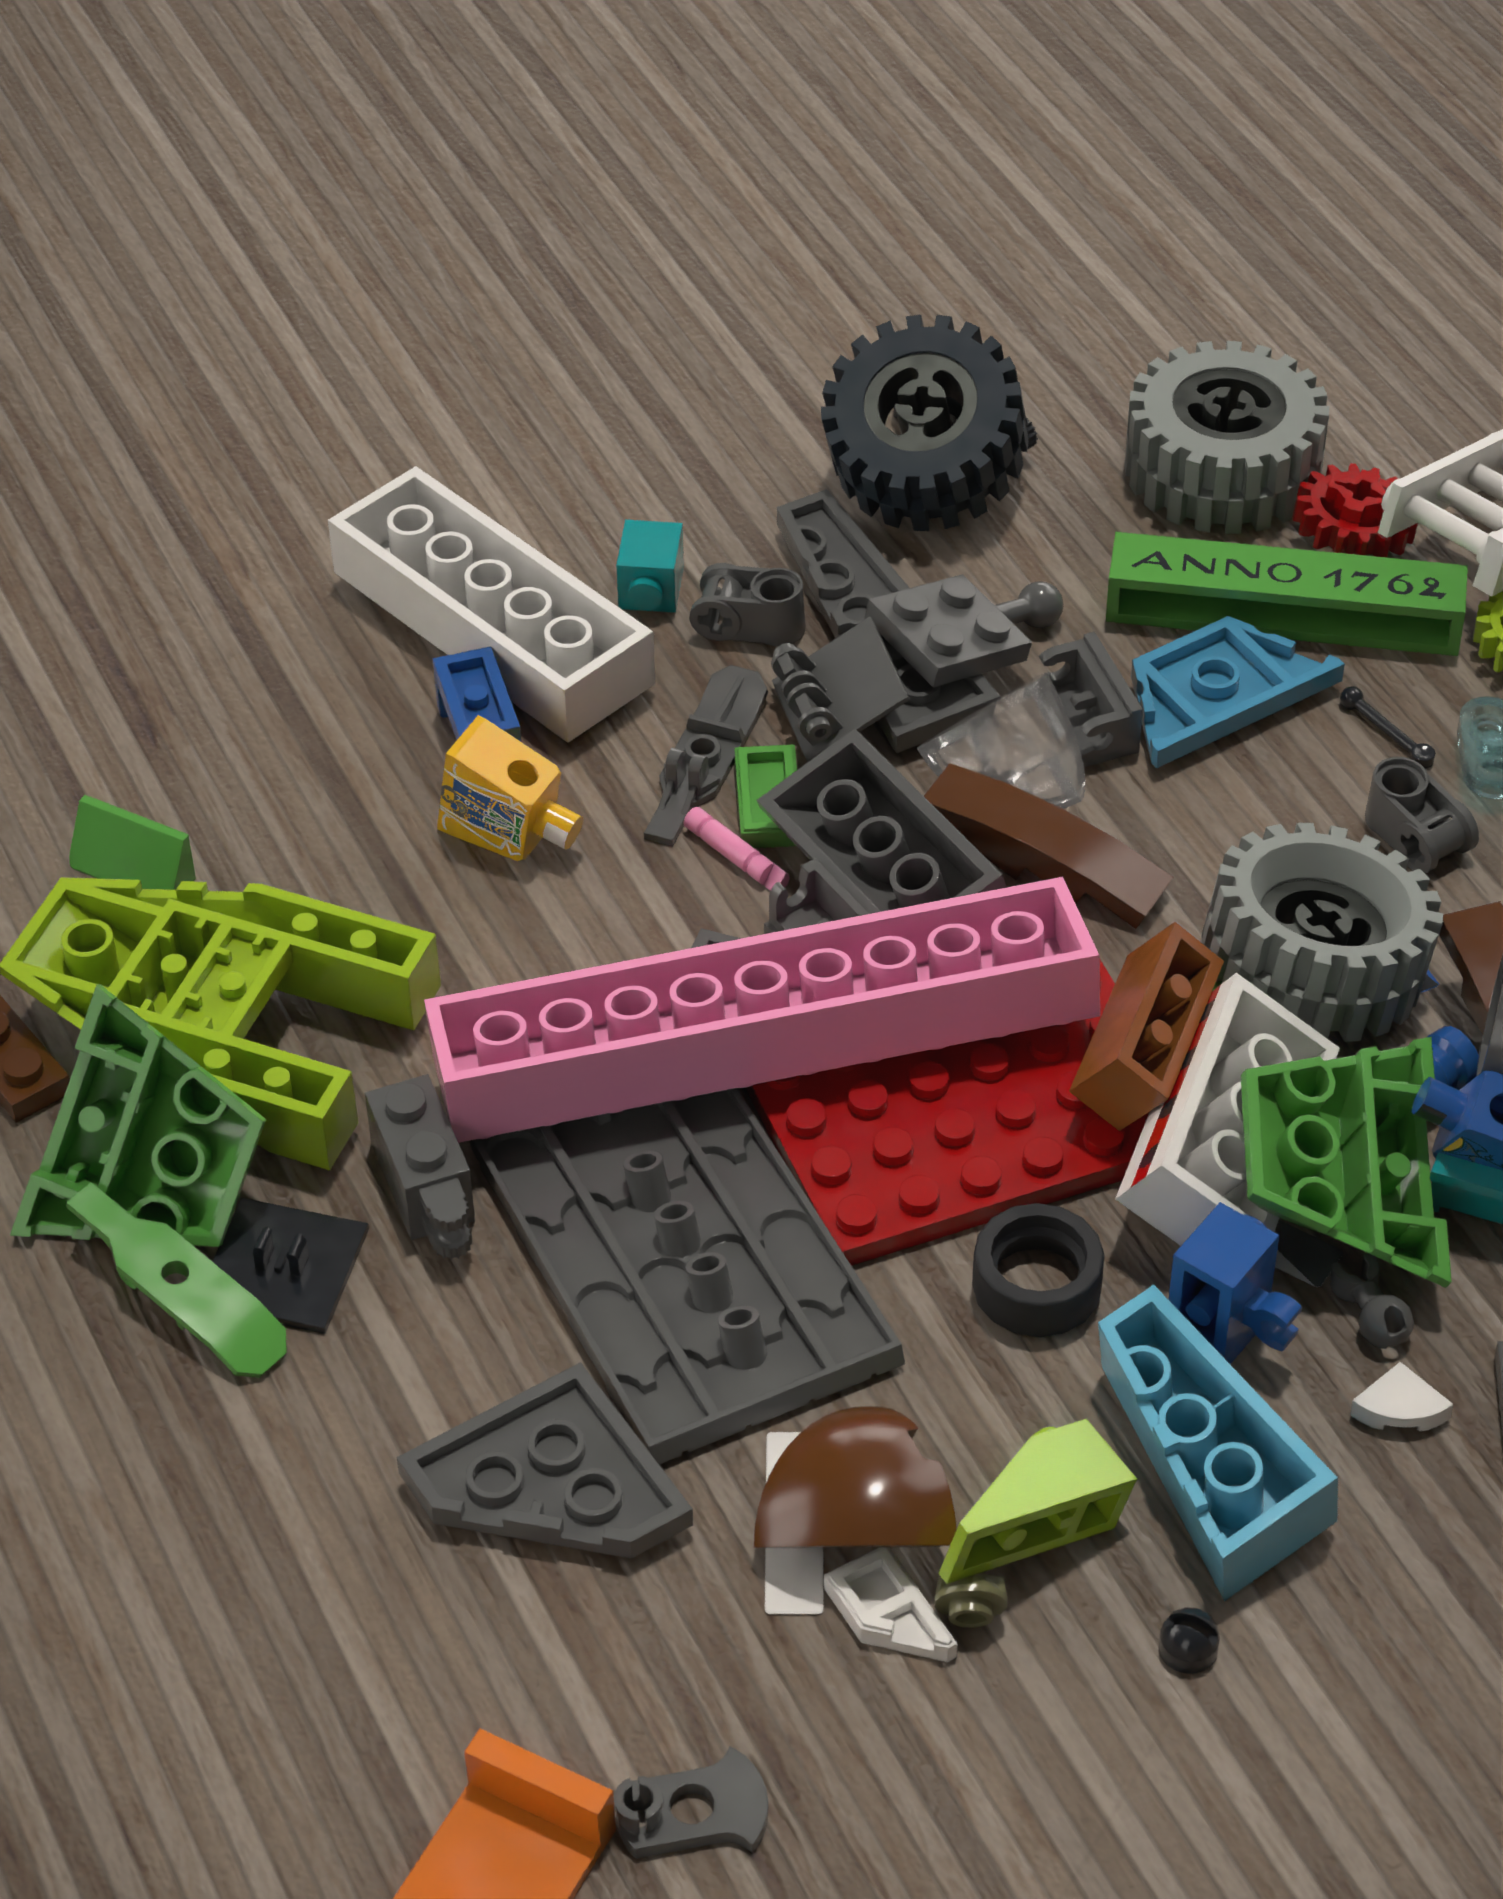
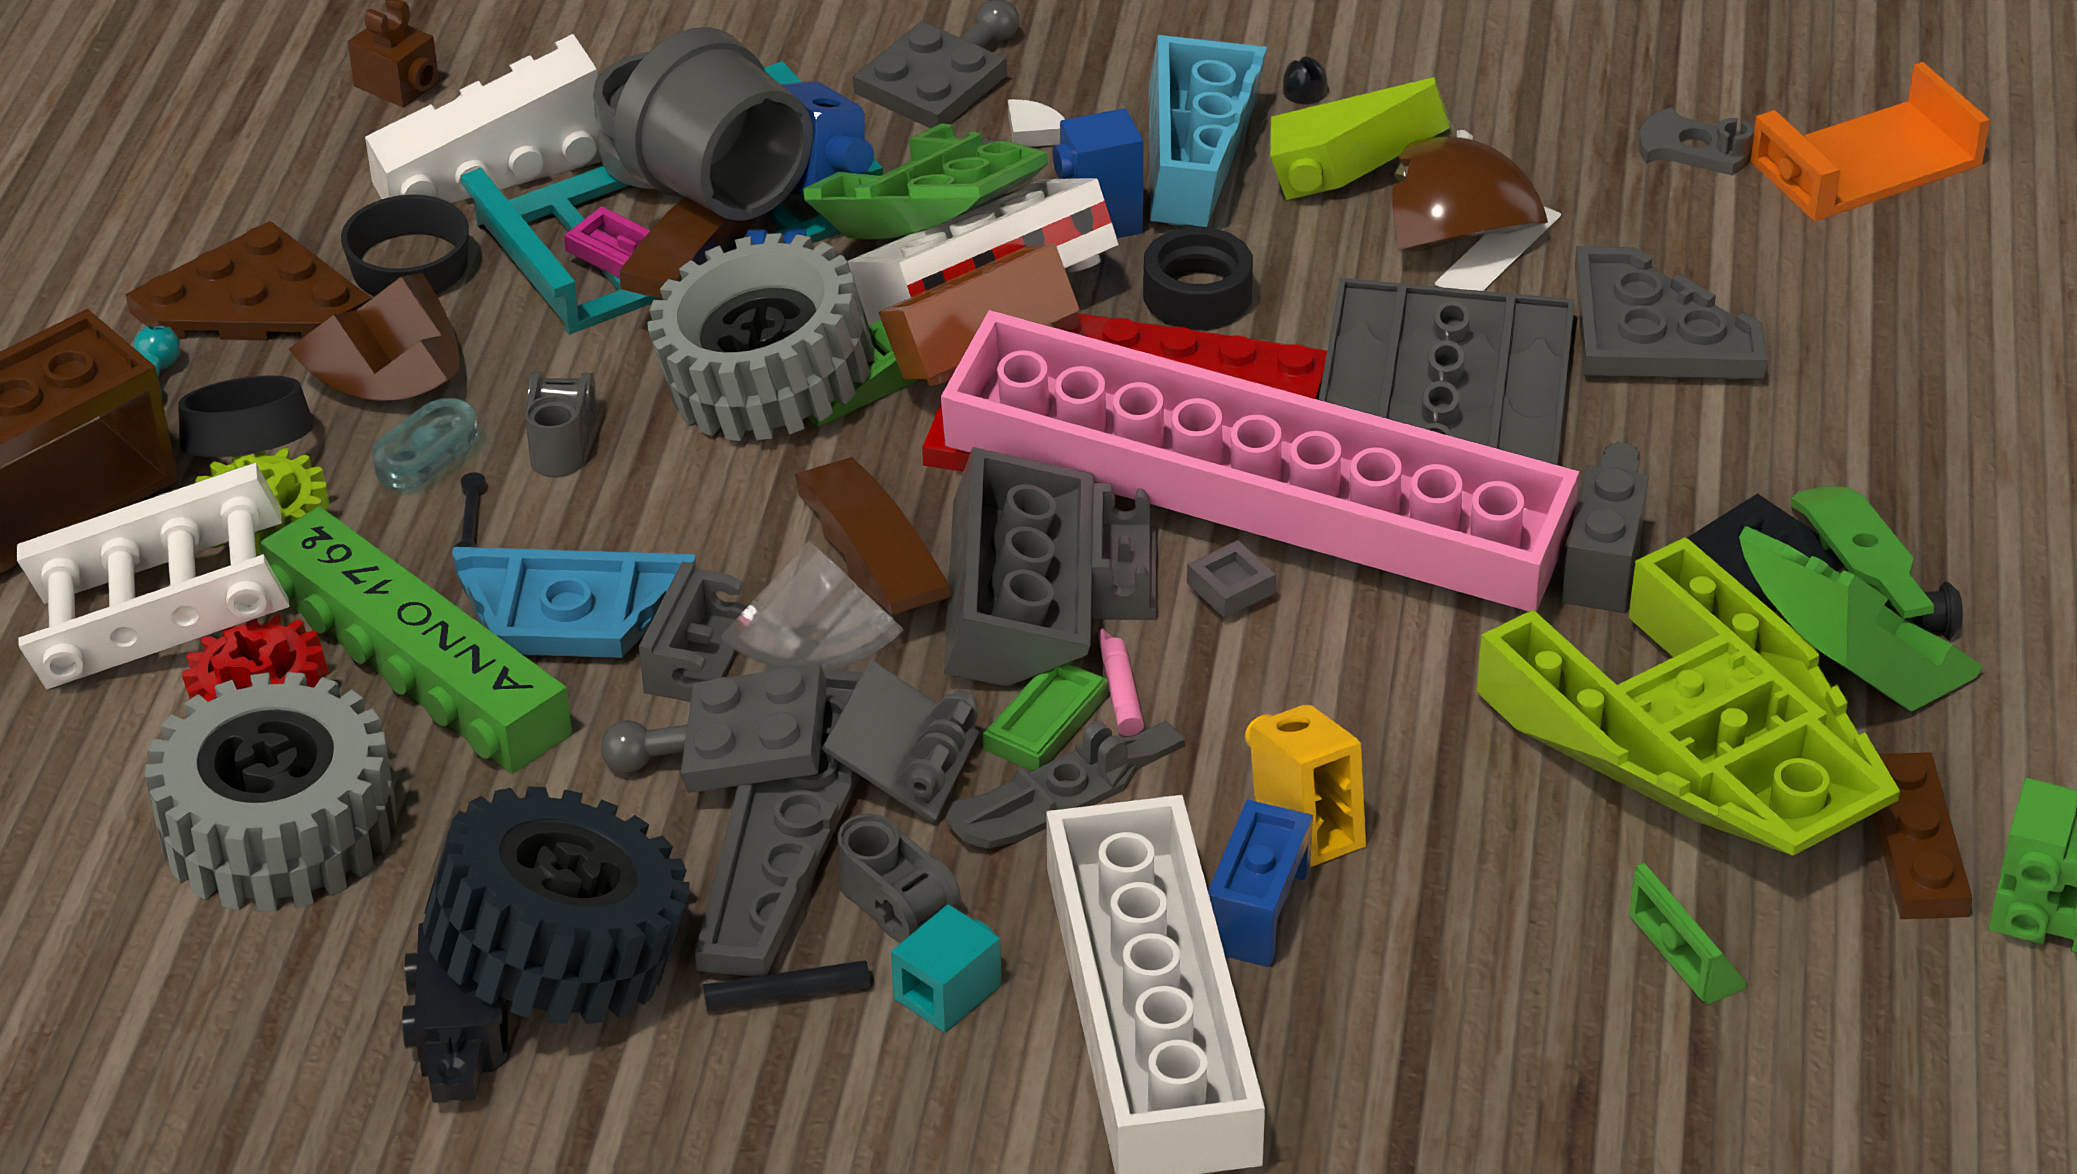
camera: 145 degrees left, 5 degrees down
(76, 1264) = (1947, 611): none -> black piece
(751, 529) = (786, 986): none -> black piece

